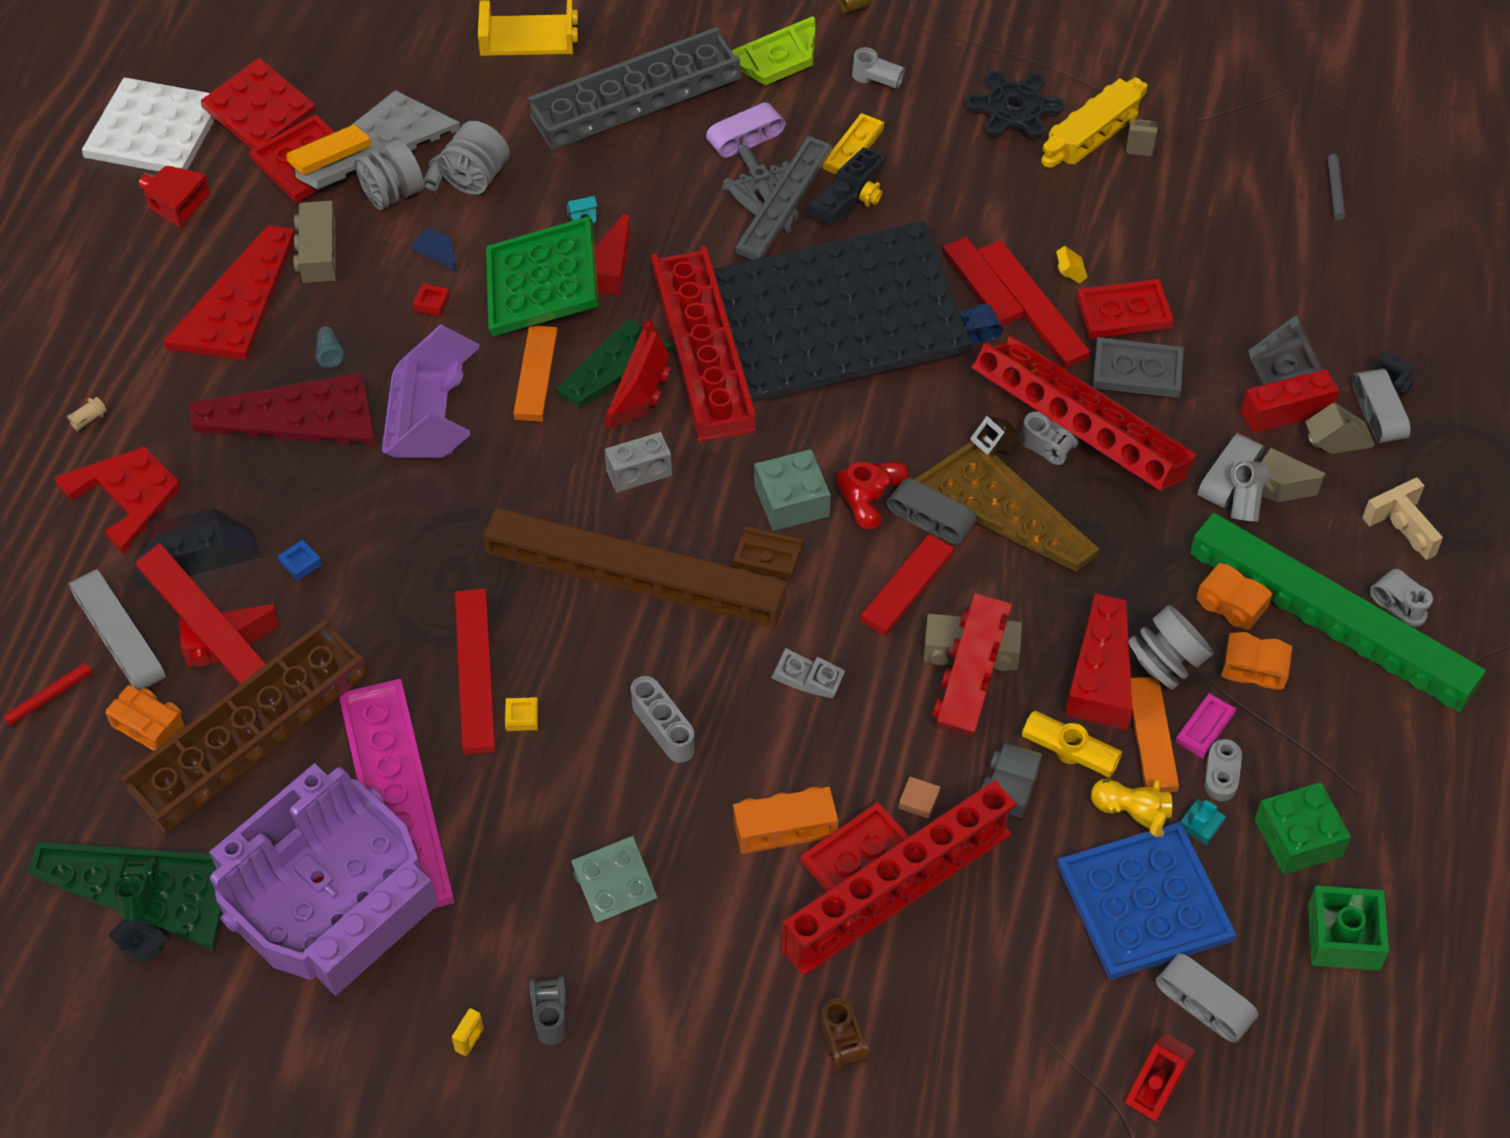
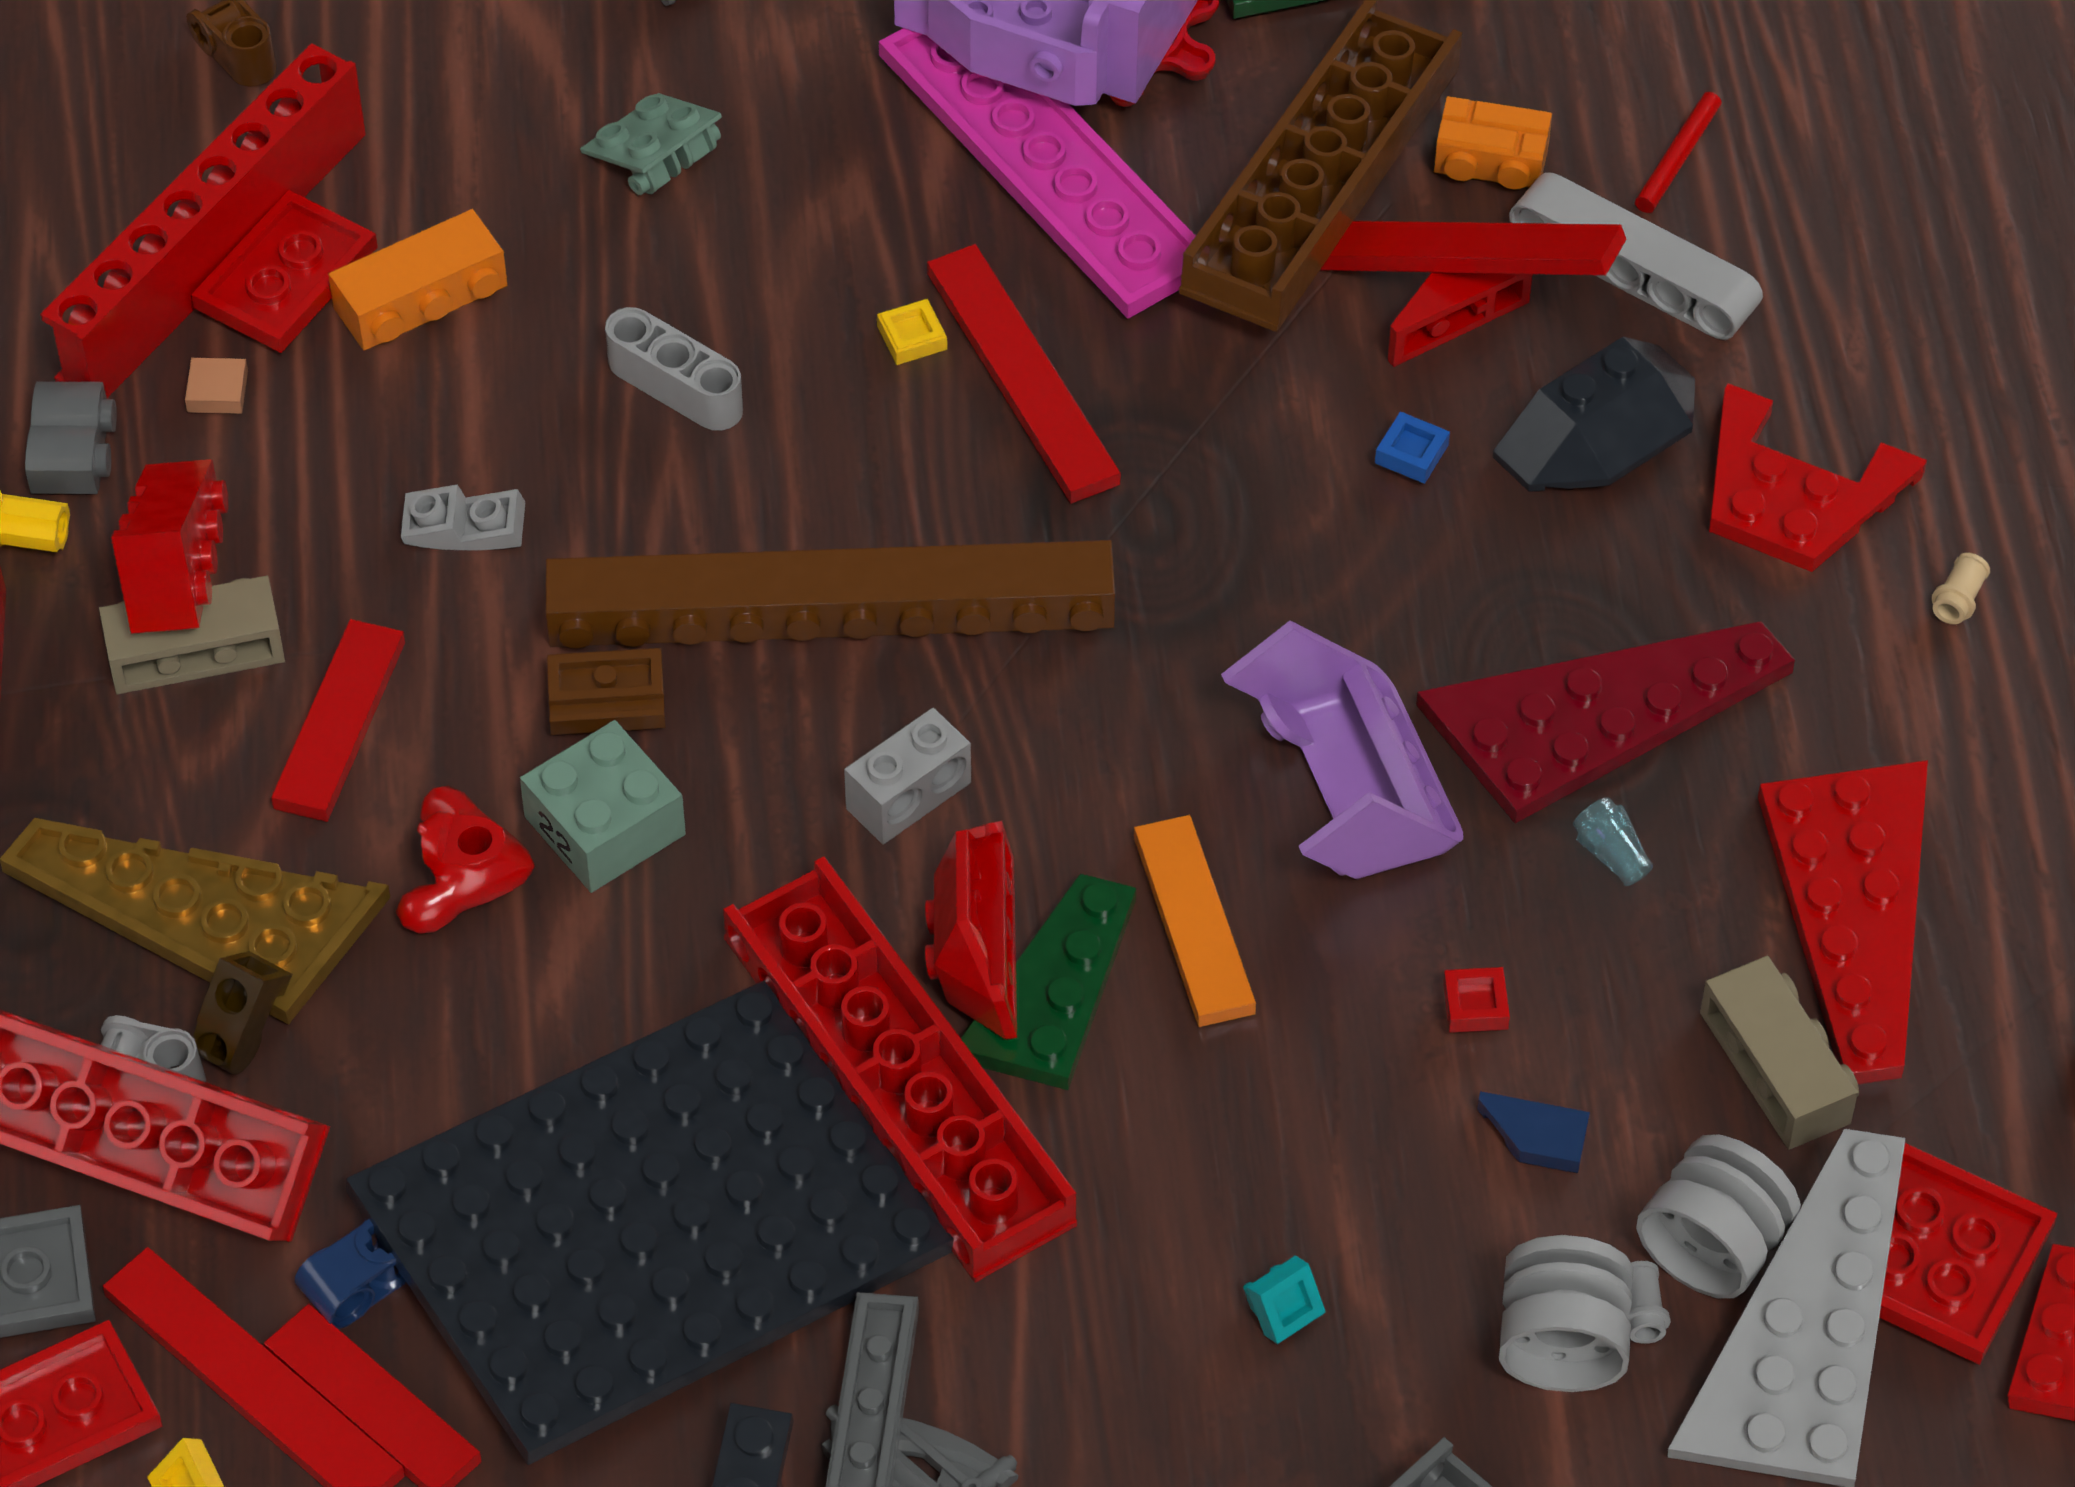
camera: 160 degrees right, 0 degrees up
(328, 149) = (1861, 1191): light orange tile -> none
(541, 276) = (1275, 1083): green plate -> none
(612, 257) = (1163, 1176): red slope -> none
(931, 511) = (334, 843): dark grey beam -> none

